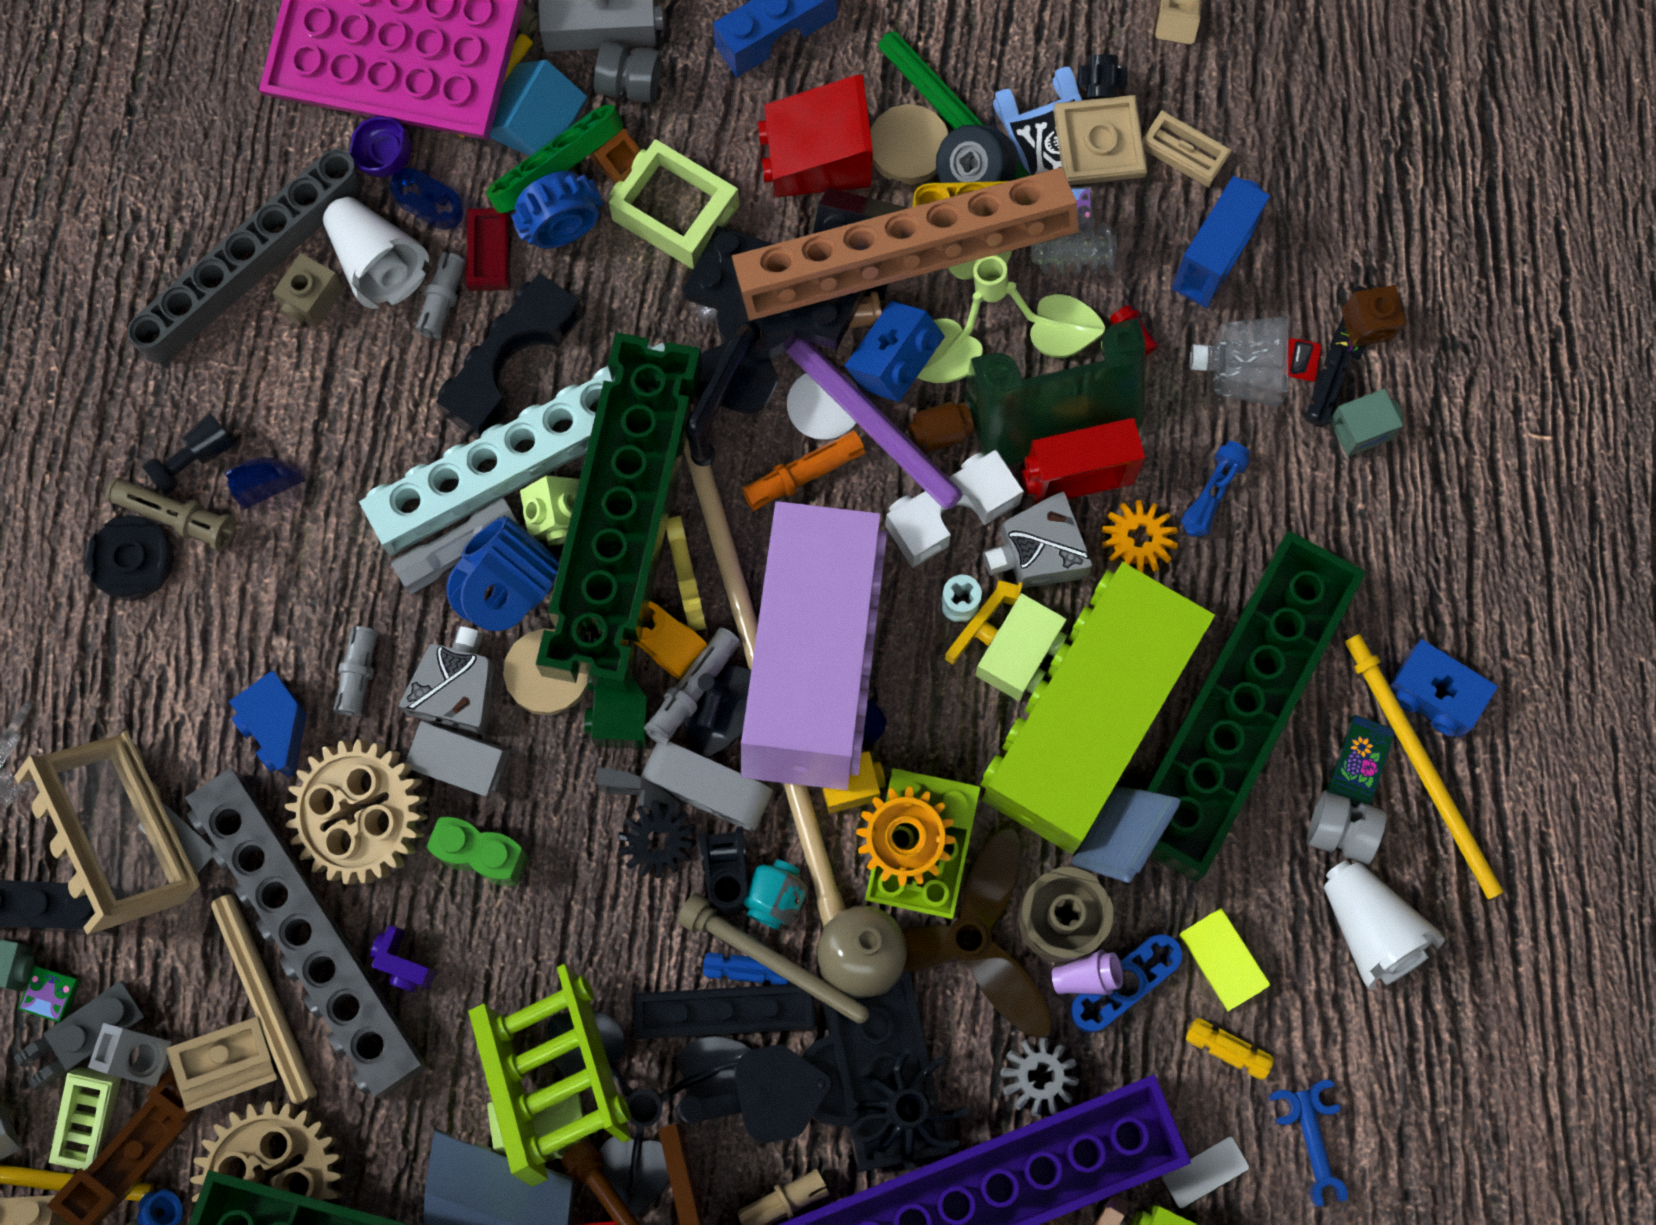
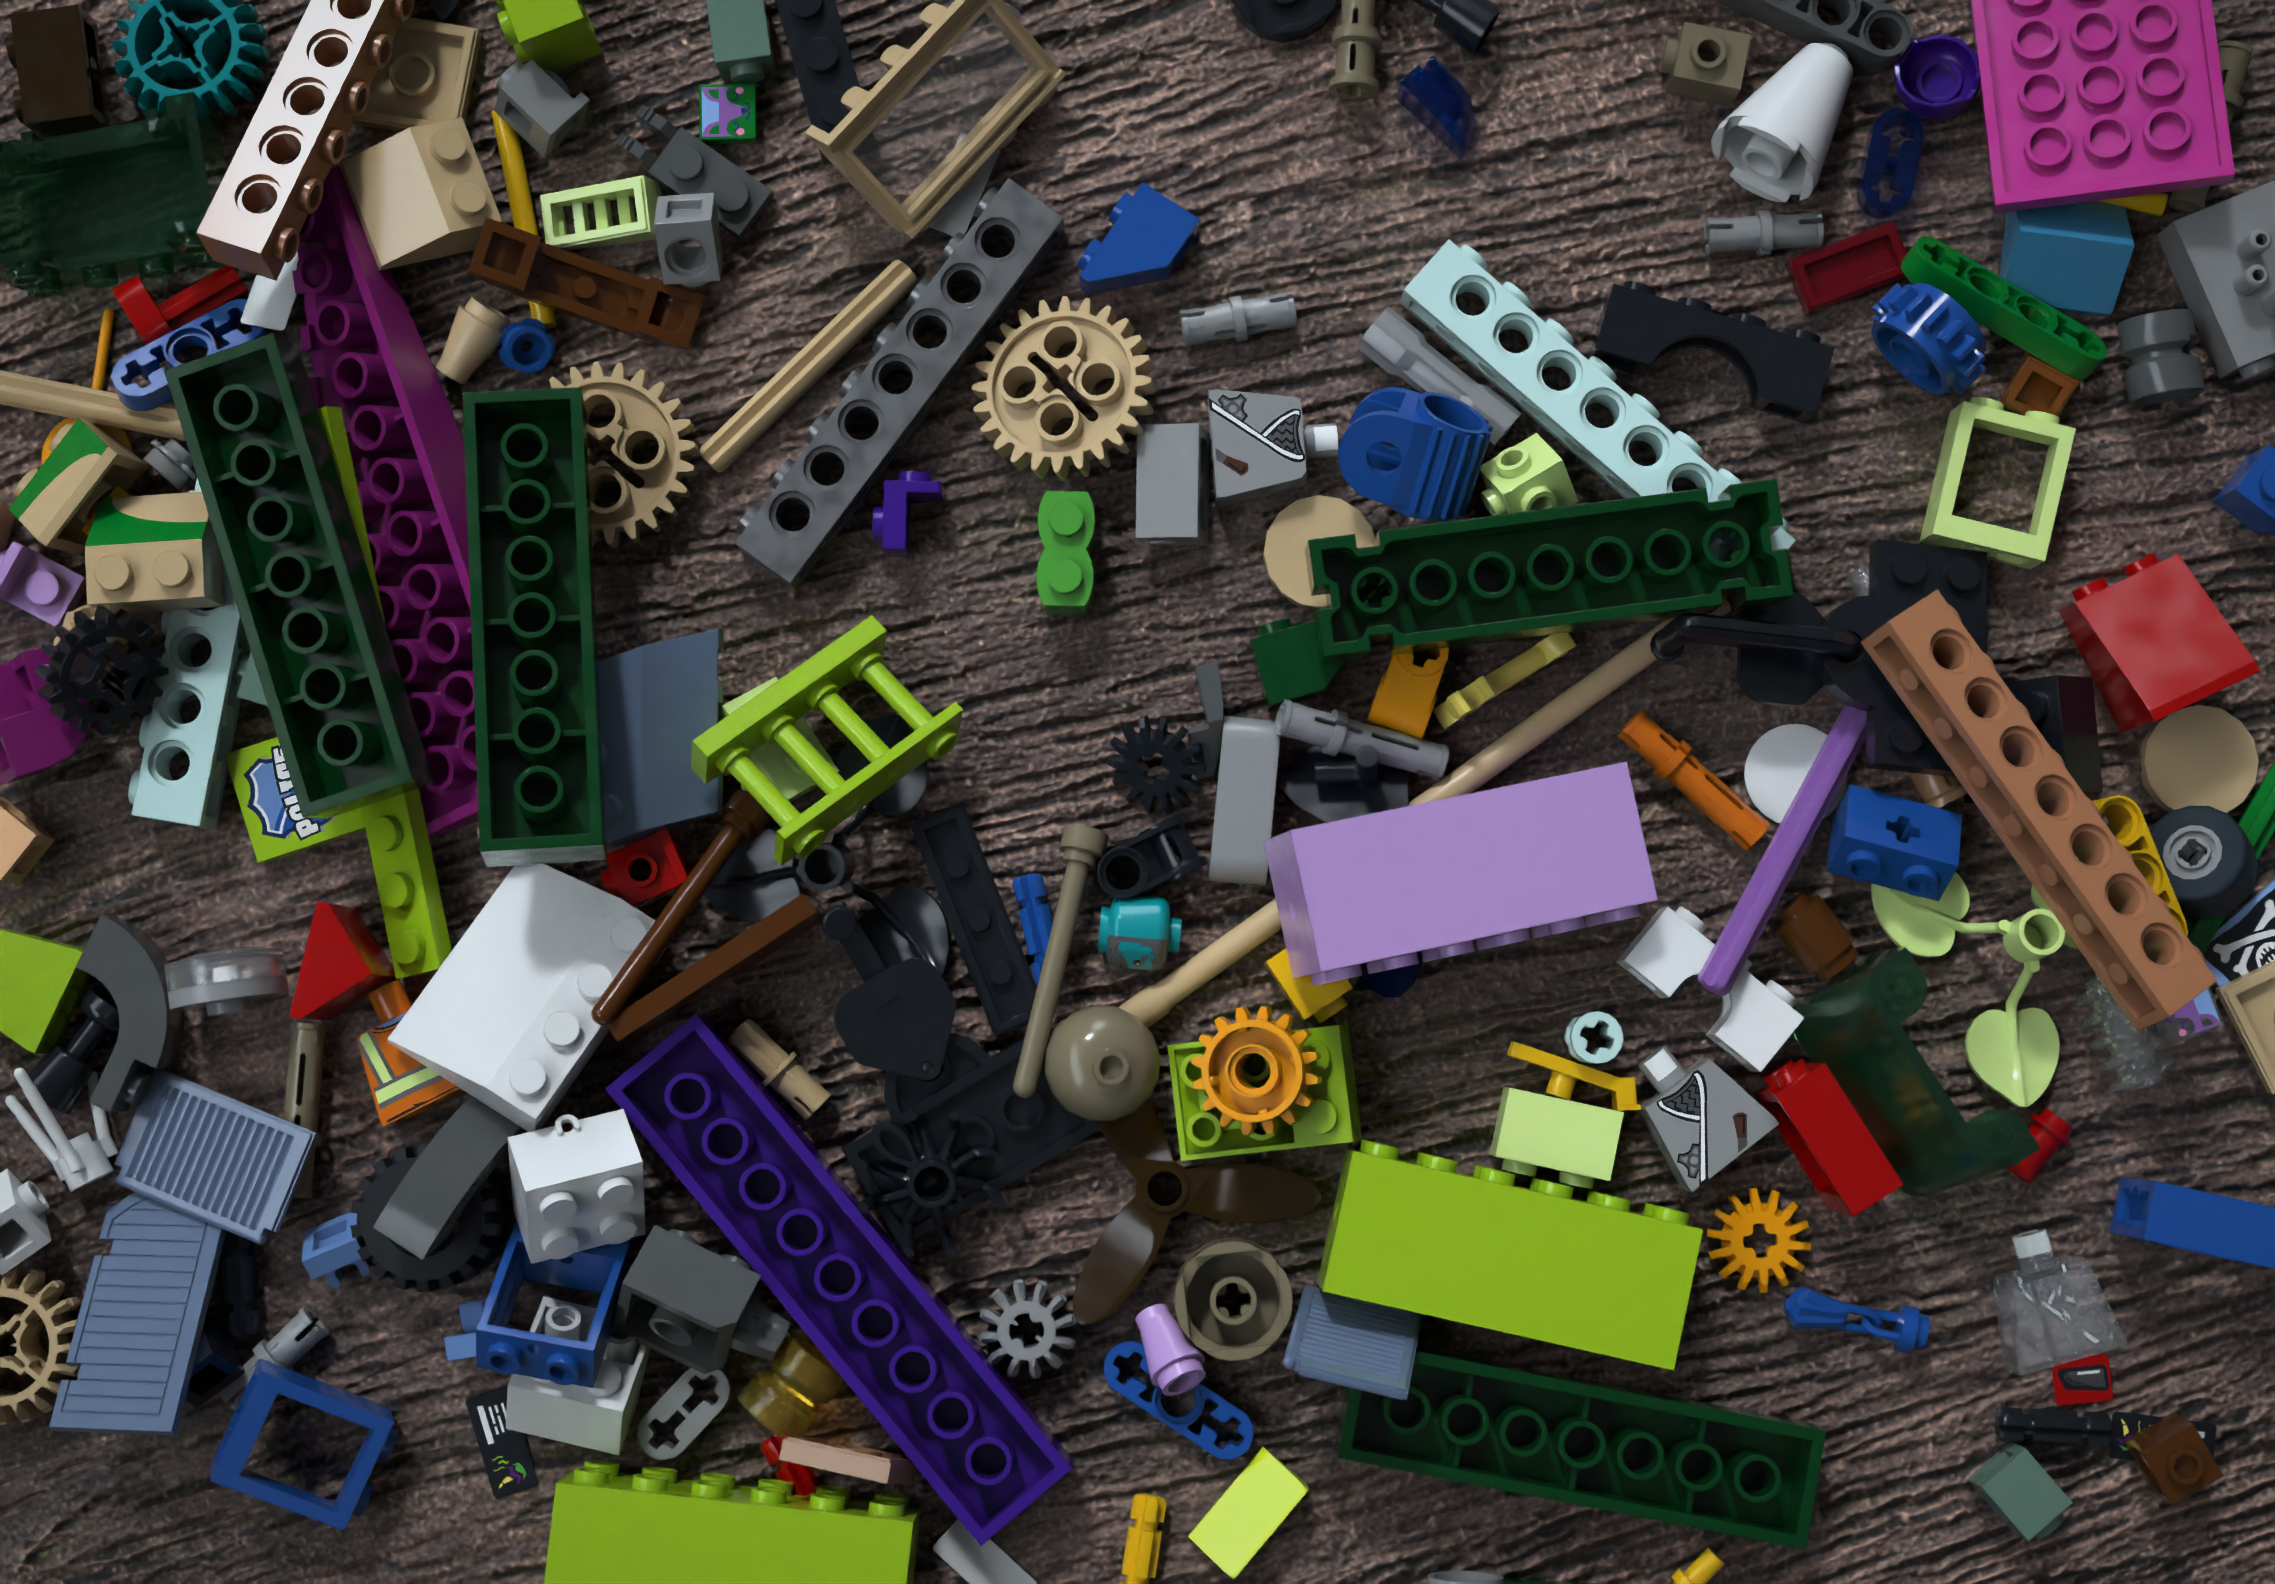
camera: 75 degrees right, 10 degrees up
(221, 1064) = (714, 348): tan plate -> none

